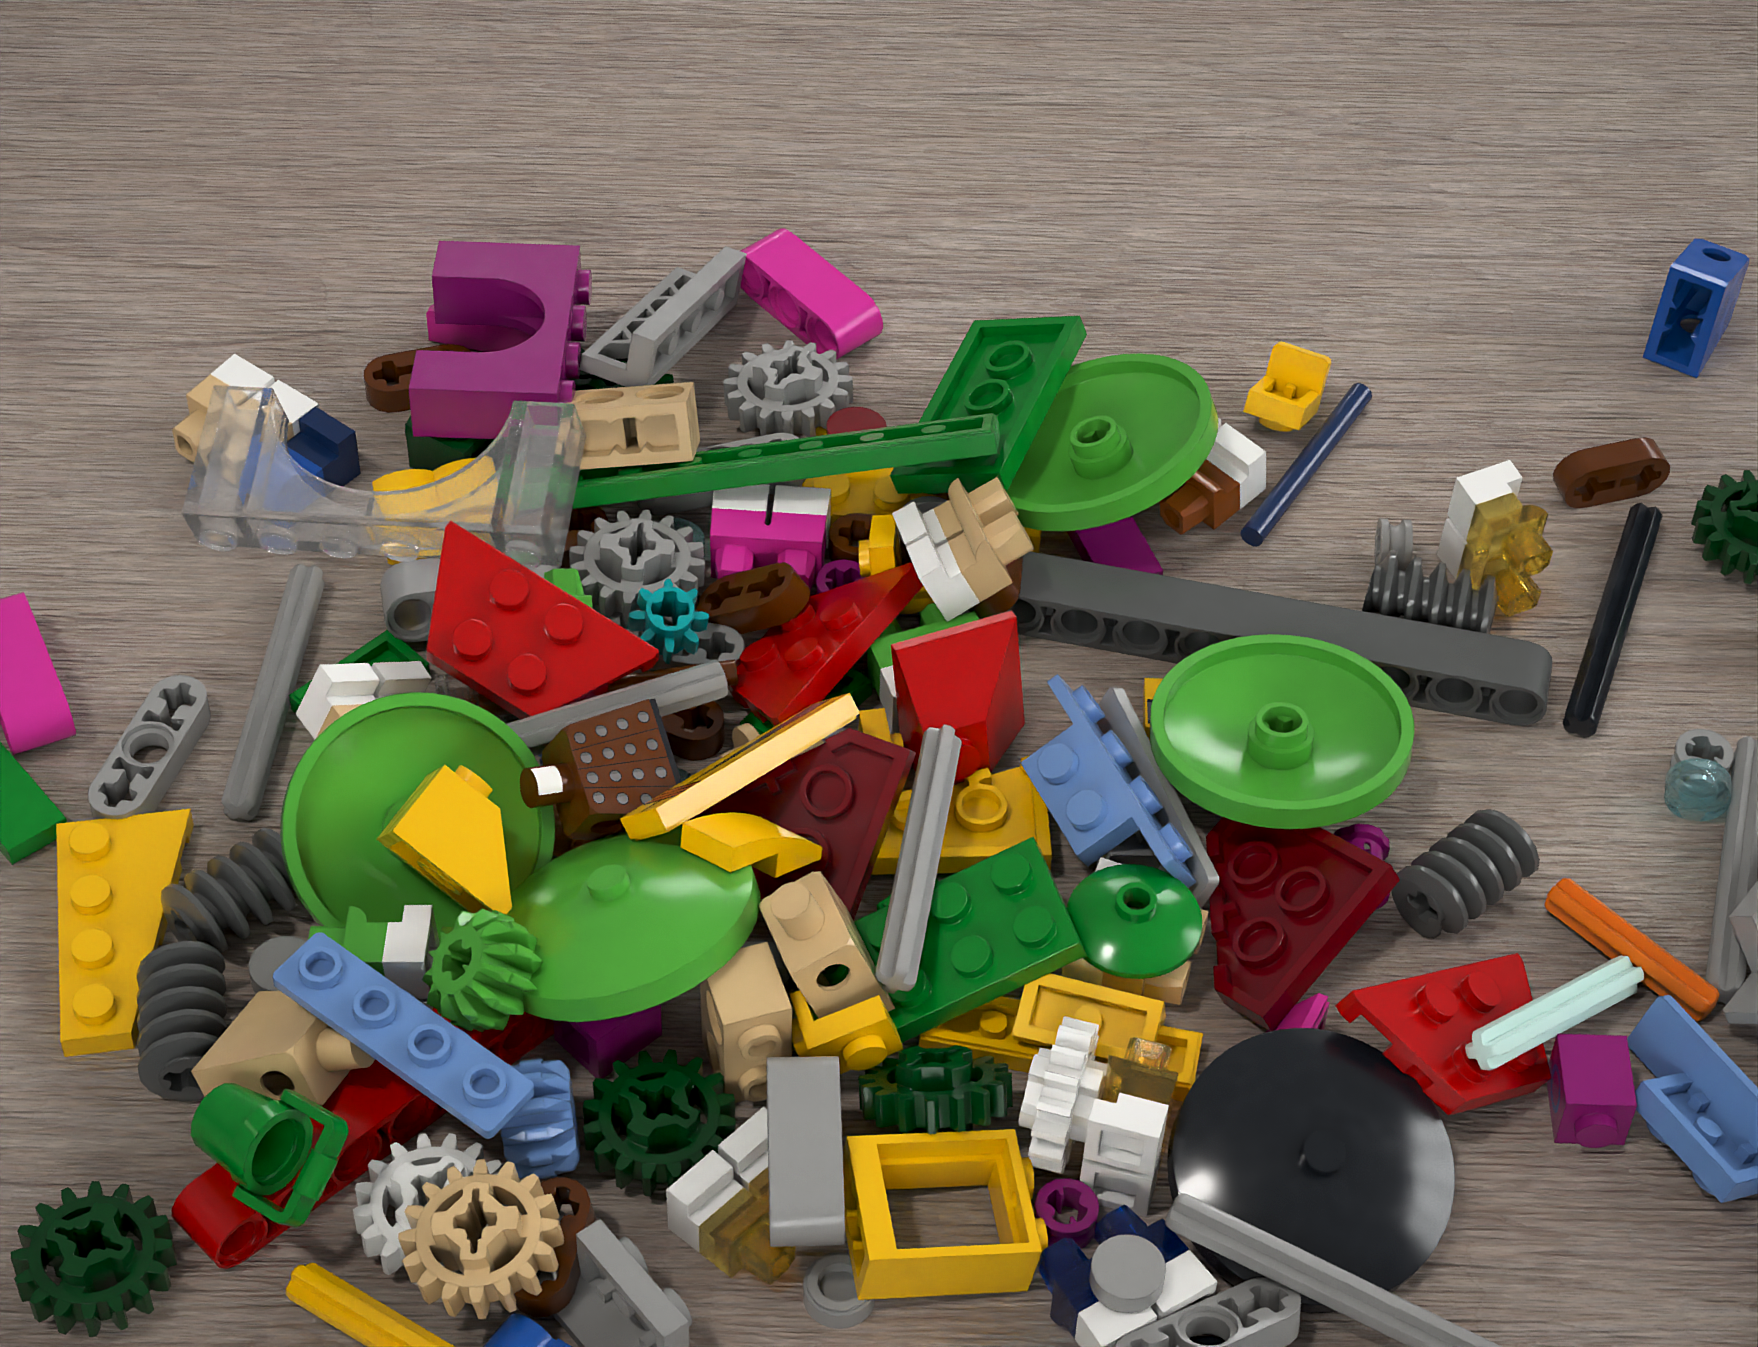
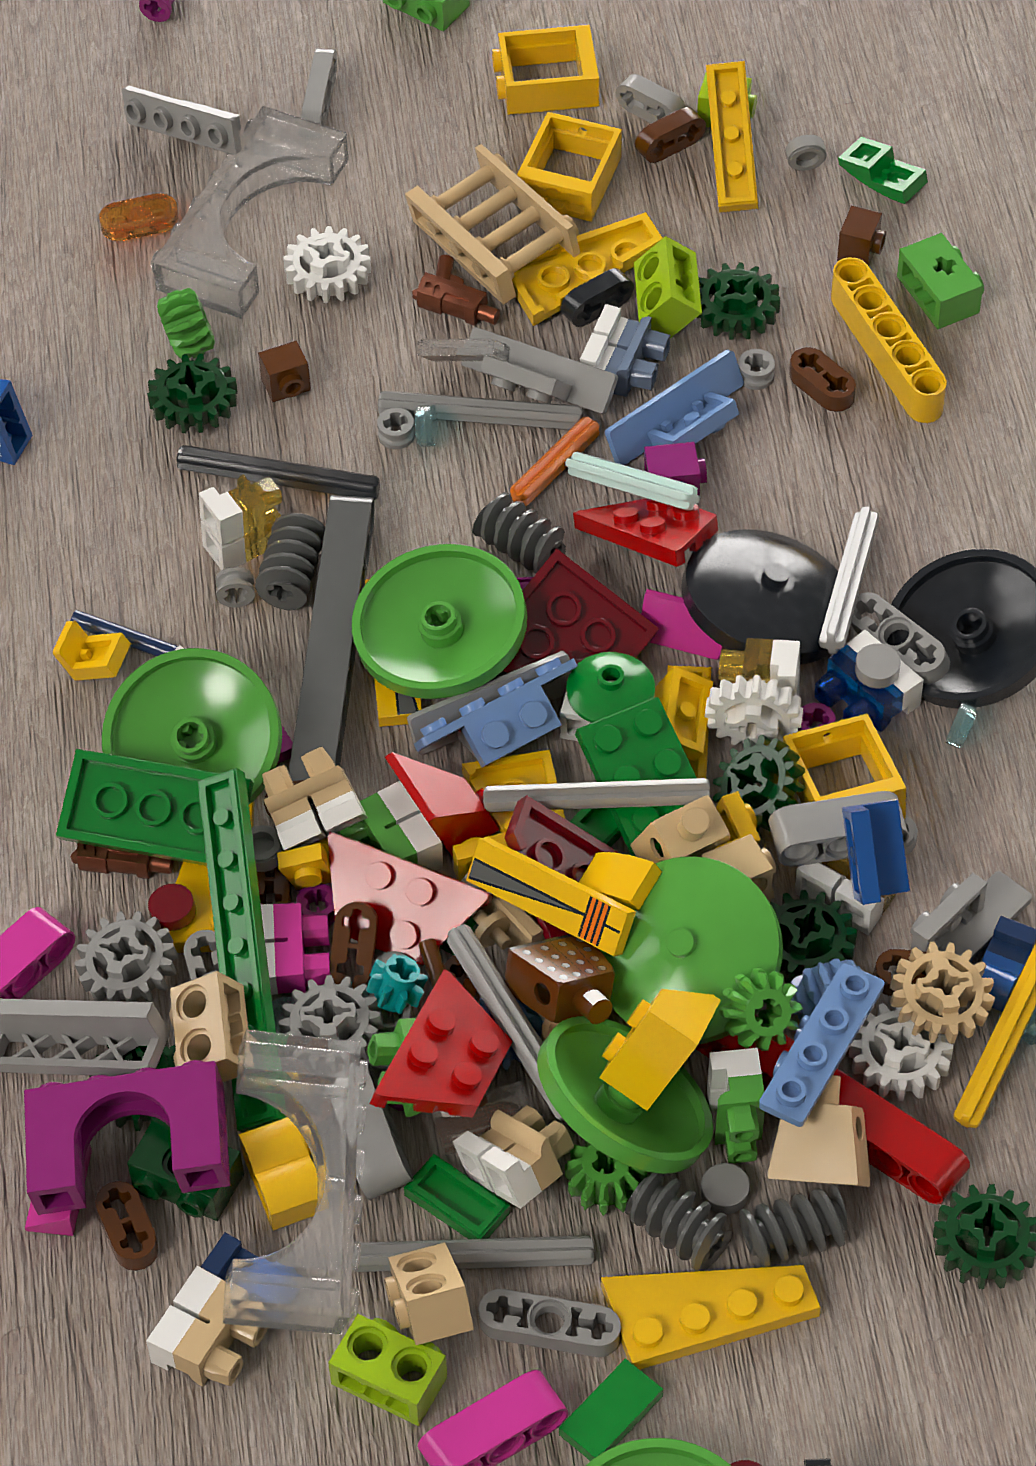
camera: 95 degrees left, 5 degrees up
(134, 581) = (380, 1378): none -> lime brick
(204, 610) = (428, 1294): none -> tan brick
(266, 1146) = (909, 1124): green piece -> none
(731, 1161) = (875, 850): none -> blue panel
(1611, 472) = (148, 471): reddish brown beam -> none

